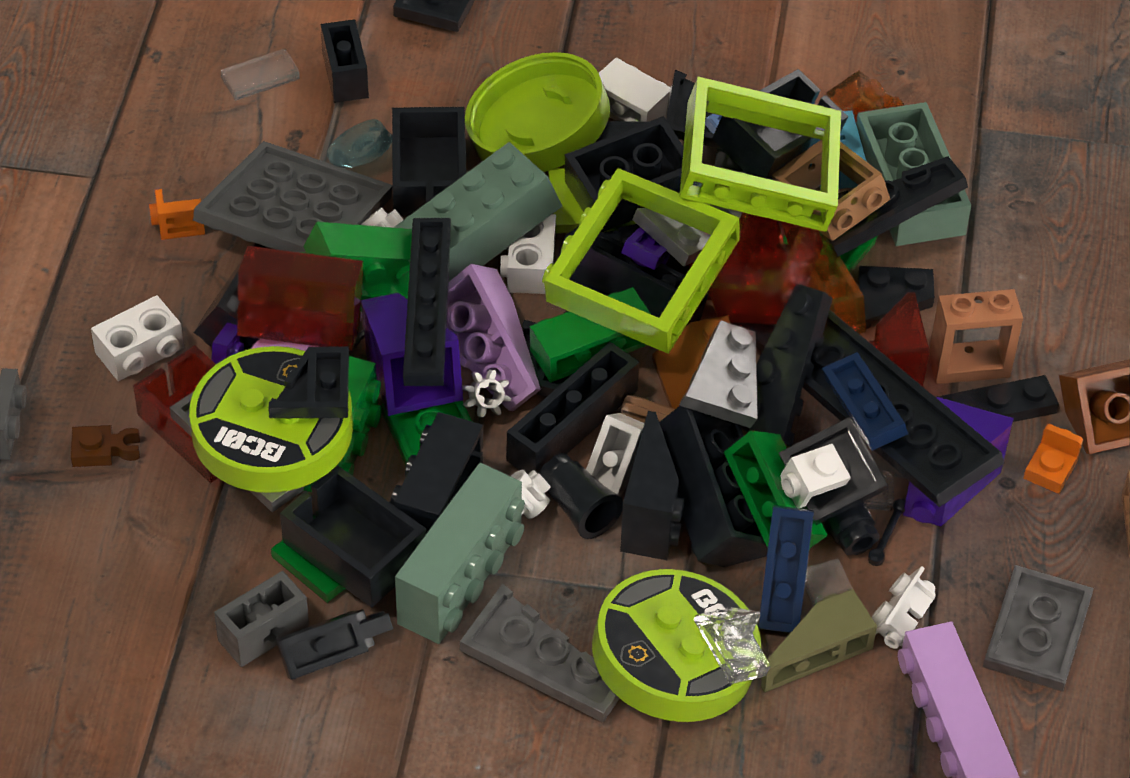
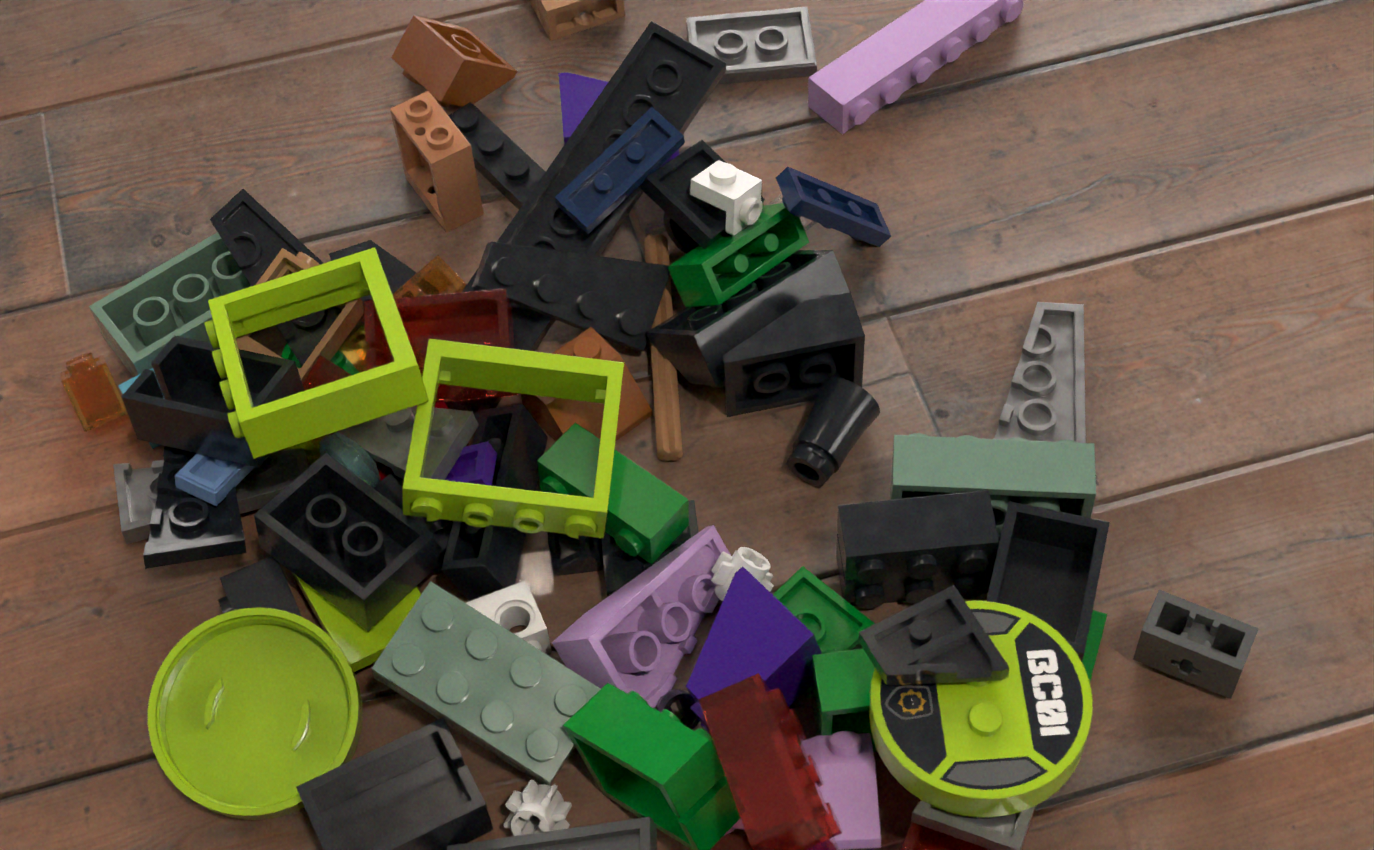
camera: 110 degrees left, 5 degrees up
(330, 641) = (1155, 572): black hinge -> none
(427, 302) = (697, 626): black tile -> none
(533, 492) = (863, 468): white gear -> none
(573, 409) = (732, 476): black brick -> none
(615, 451) = (749, 421): white slope -> none
(633, 93) = (157, 625): white brick -> none
(654, 650) = (968, 276): lime piece -> none
(726, 377) = (636, 318): wing -> none
(733, 644) = (947, 214): clear slope -> none
(827, 635) = (885, 178): olive slope -> none
(903, 338) = (473, 214): clear red slope -> none
(909, 595) = (798, 140): white hinge -> none
(1054, 458) = (537, 87): orange bracket -> none

